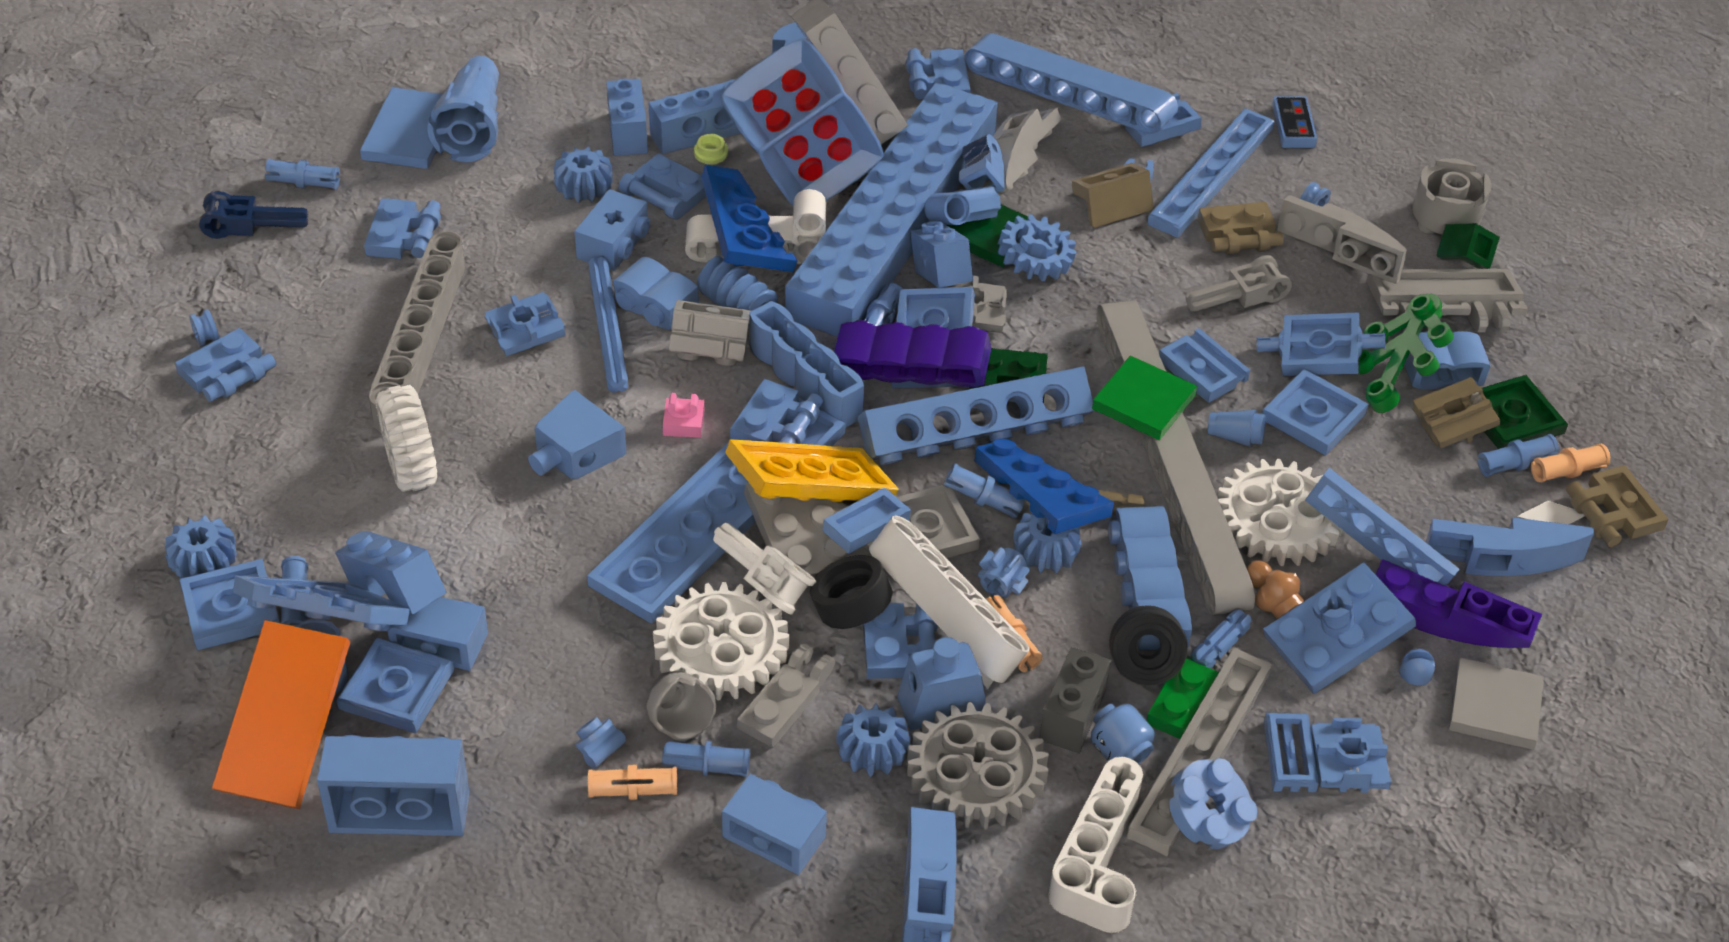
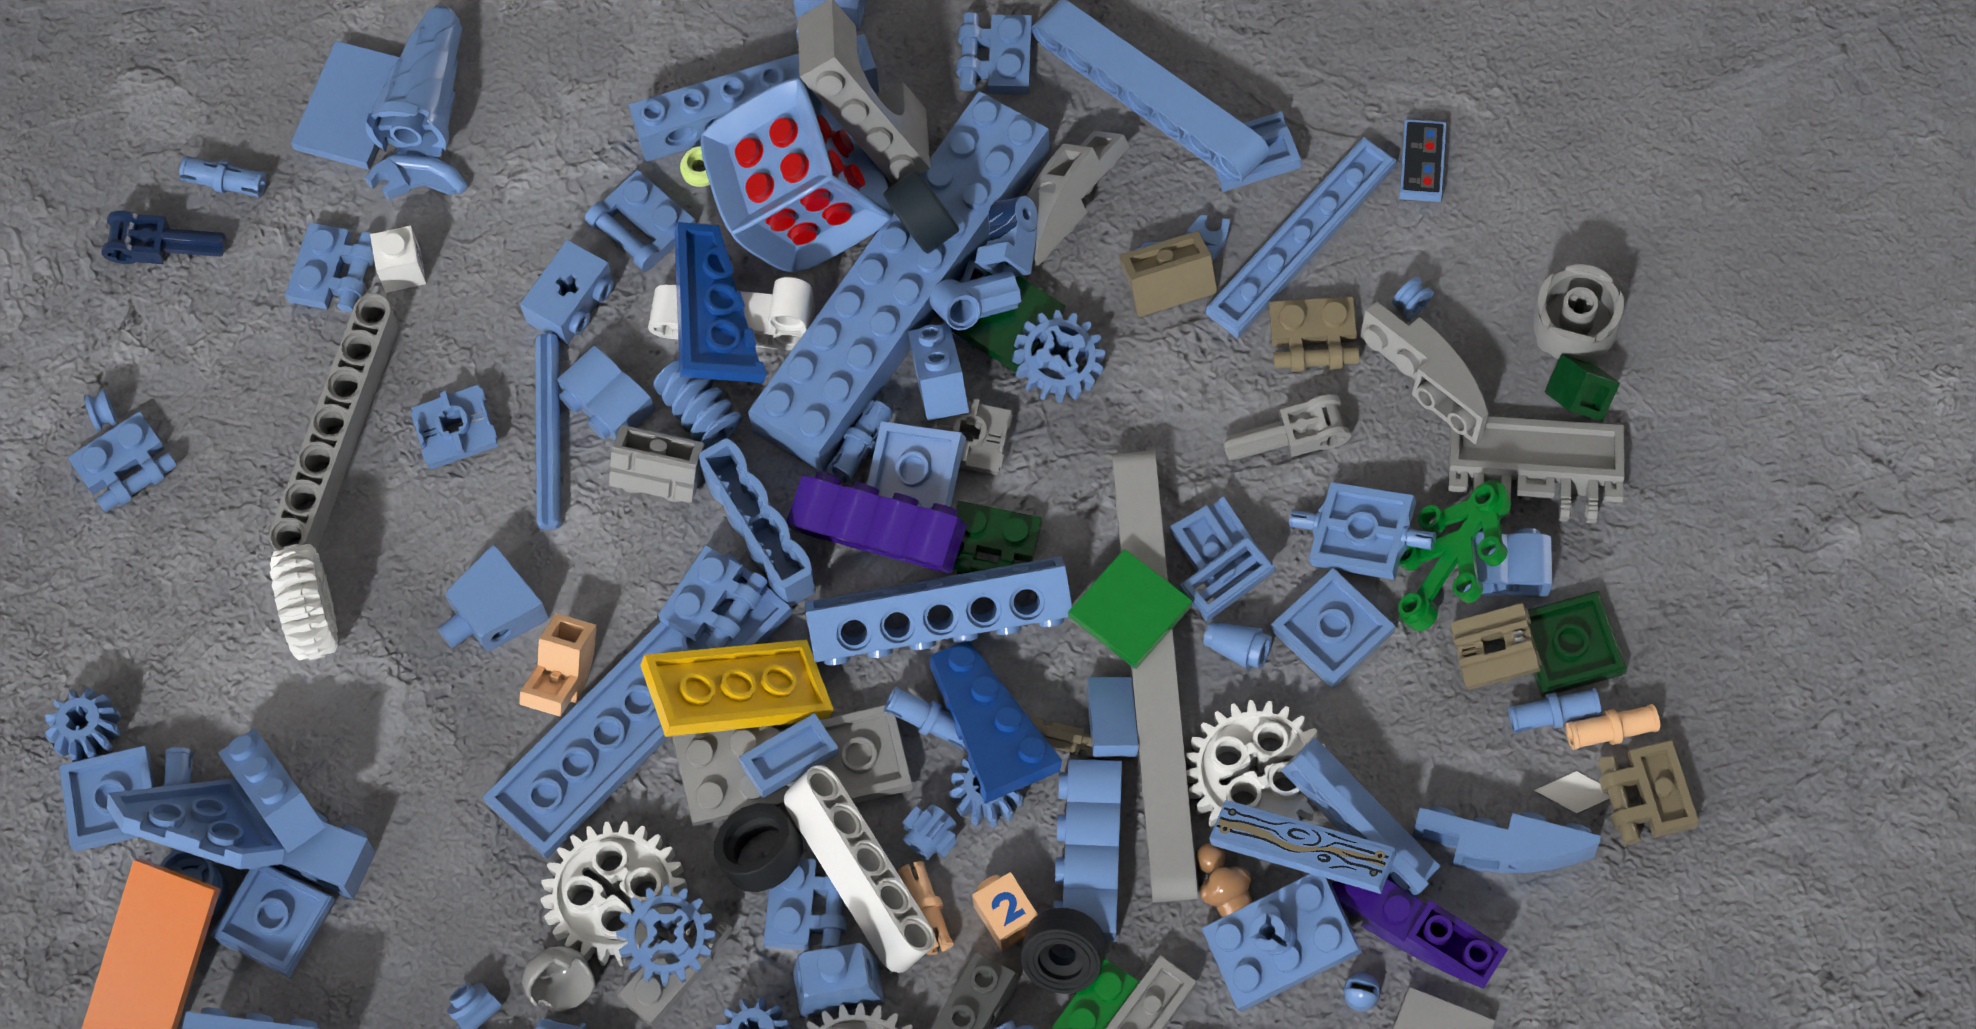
camera: 15 degrees right, 20 degrees up
(457, 167) = (415, 171): none -> medium blue piece
(463, 212) = (398, 259): none -> white brick
(583, 174) = (529, 203): medium blue gear -> none
(627, 117) = (605, 112): medium blue brick -> none
(647, 471) = (562, 665): none -> light nougat brick
(683, 416) = (616, 576): bright pink tile -> none
(769, 569) = (676, 813): white connector -> none
(781, 656) = (651, 921): none -> medium blue gear
(911, 140) = (921, 211): none -> black wheel
(1084, 623) = (1003, 909): none -> light nougat brick
(1145, 480) = (1112, 717): none -> medium blue tile
(1222, 638) = (1153, 937): medium blue axle -> none
(1225, 380) = (1199, 600): none -> medium blue tile
(1344, 546) = (1303, 846): none -> medium blue tile

